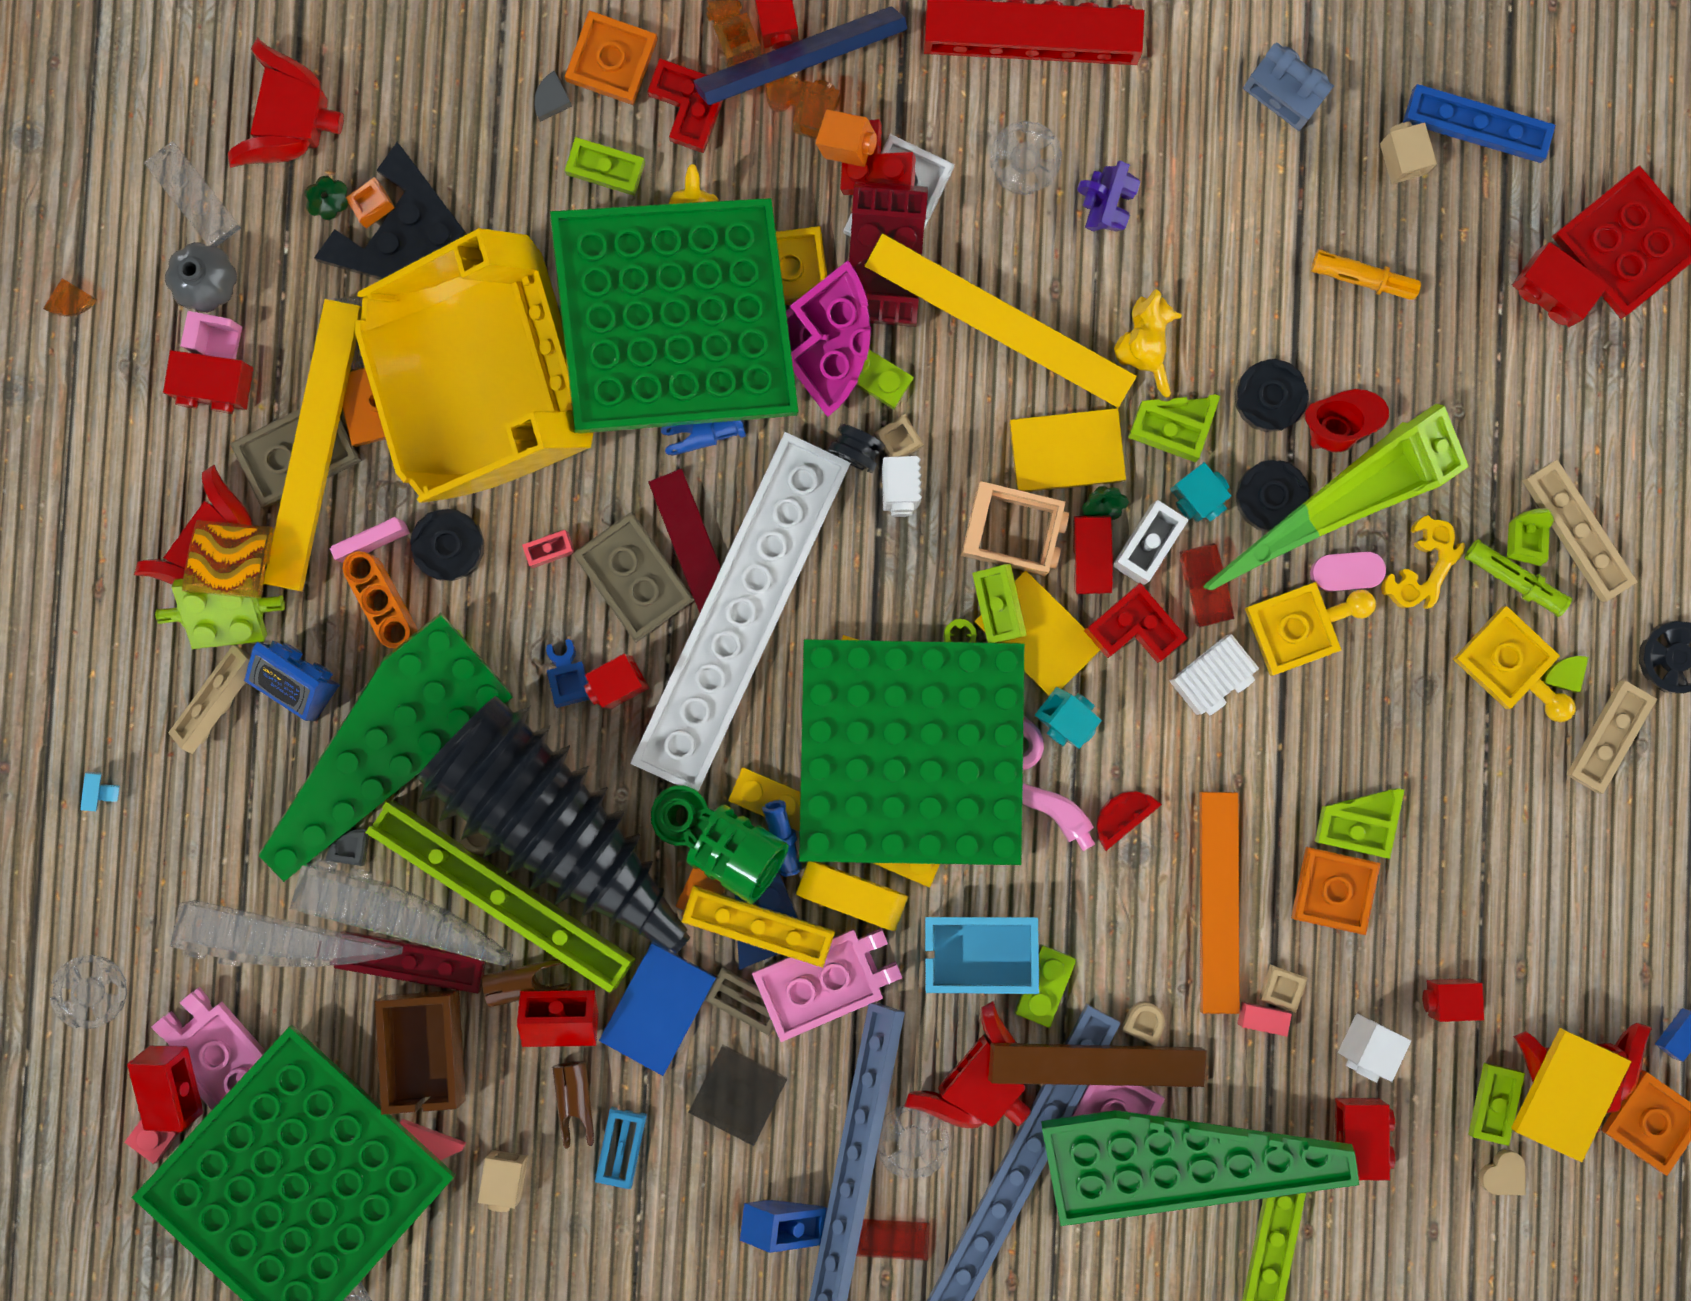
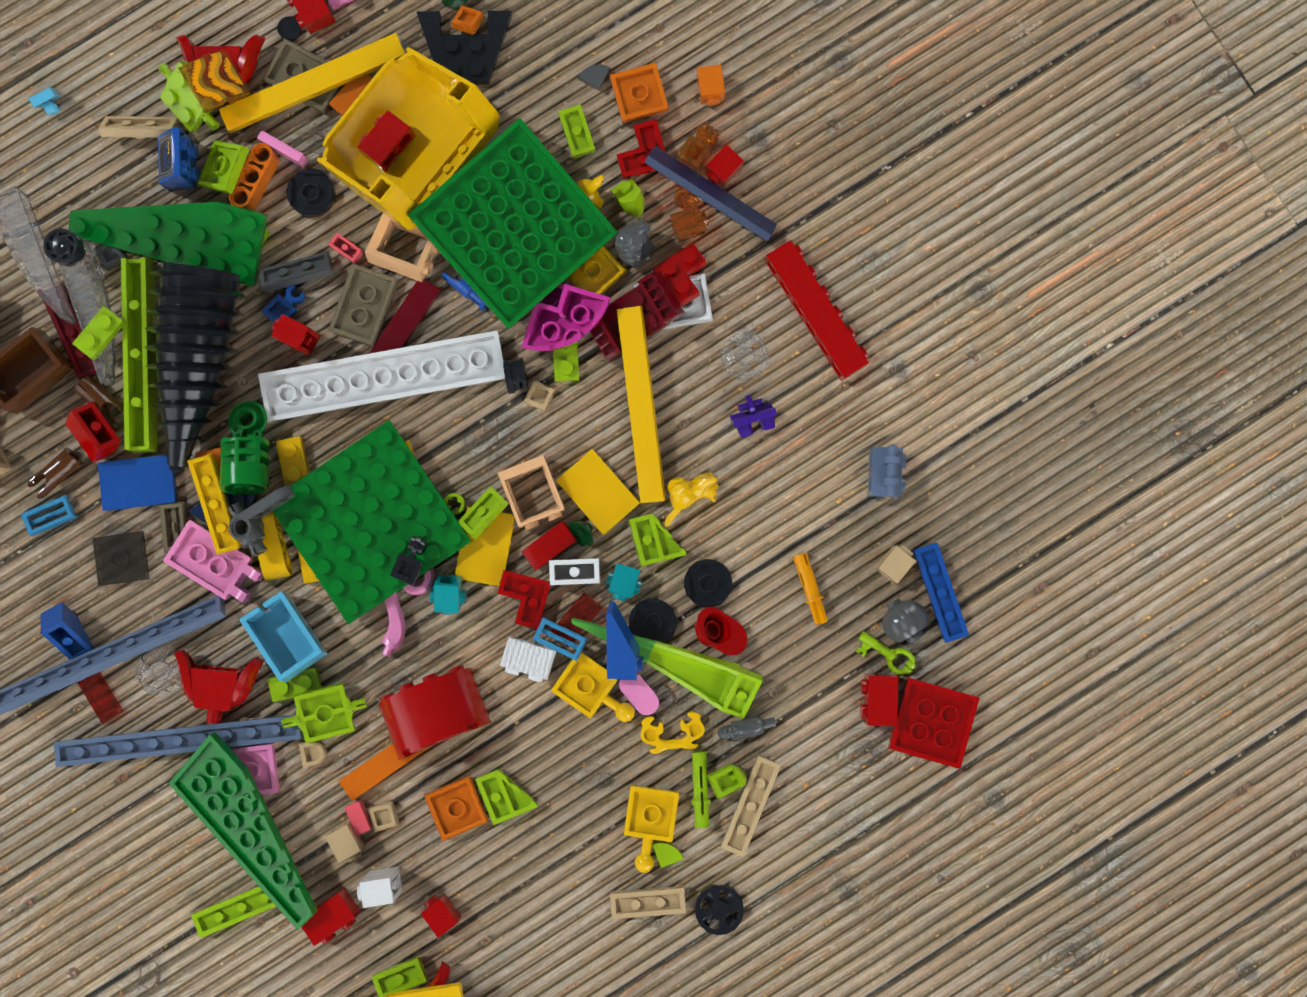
camera: 55 degrees right, 0 degrees up
(220, 429) = (289, 28): none -> black piece
(303, 891) = (64, 247): none -> black wheel
(339, 628) = (223, 167): none -> lime tile
(441, 923) = (99, 332): none -> lime plate
(451, 403) = (386, 140): none -> red brick
(534, 630) = (296, 272): none -> dark grey tile
(615, 499) = (379, 241): none -> light nougat window
(732, 158) = (629, 197): none -> lime plate
(779, 825) = (277, 479): blue pin -> none
(795, 189) = (633, 243): none -> dark grey hair
(836, 905) = (253, 517): none -> dark grey piece
(846, 138) = (679, 249): orange brick -> none
(901, 485) = (509, 413): white brick -> none
(1005, 739) = (408, 566): none -> black plate
(1097, 1065) = (267, 741): reddish brown tile -> none
(1108, 971) = (324, 713): none -> lime plate
(1122, 815) = (417, 661): red tile -> none
(1191, 634) = (541, 629): none -> dark azure tile
(1202, 838) = (433, 711): none -> red cylinder
(1285, 1055) = (345, 843): none -> tan brick
(1292, 553) = (622, 648): none -> blue slope
(1481, 470) = (746, 728): none -> dark grey piece
(1485, 189) = (905, 621): none -> dark grey plant
(1512, 236) = (890, 654): none -> lime piece

